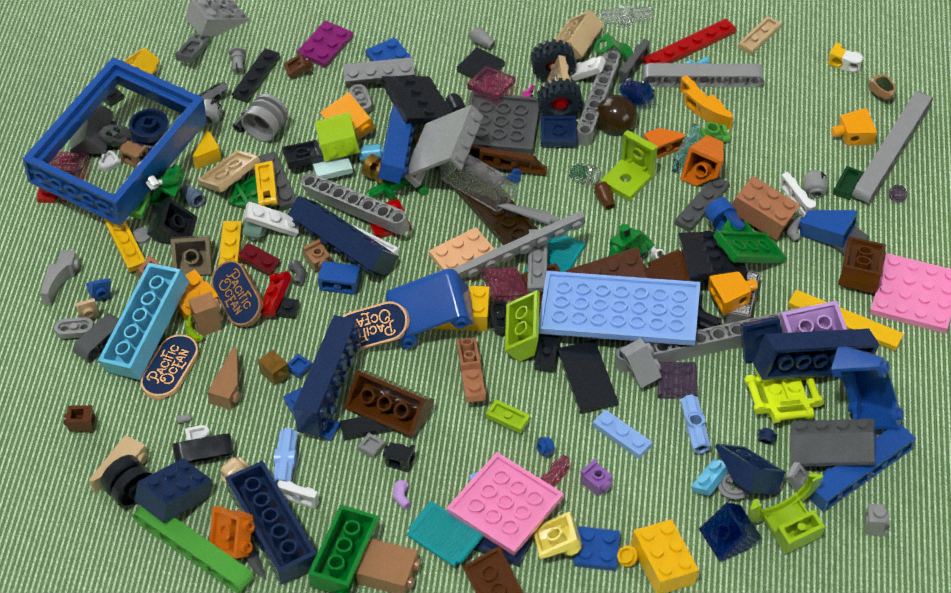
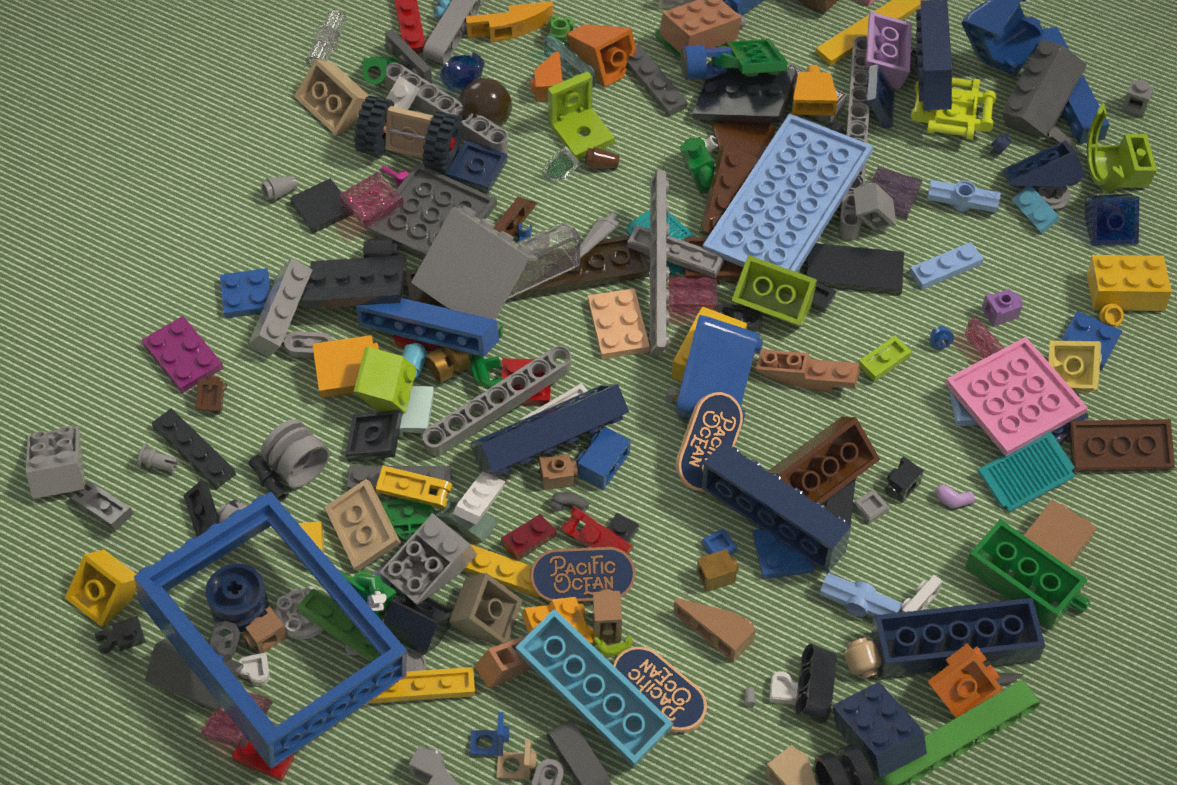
camera: 70 degrees left, 5 degrees up
(212, 209) = (428, 560): none -> light grey slope

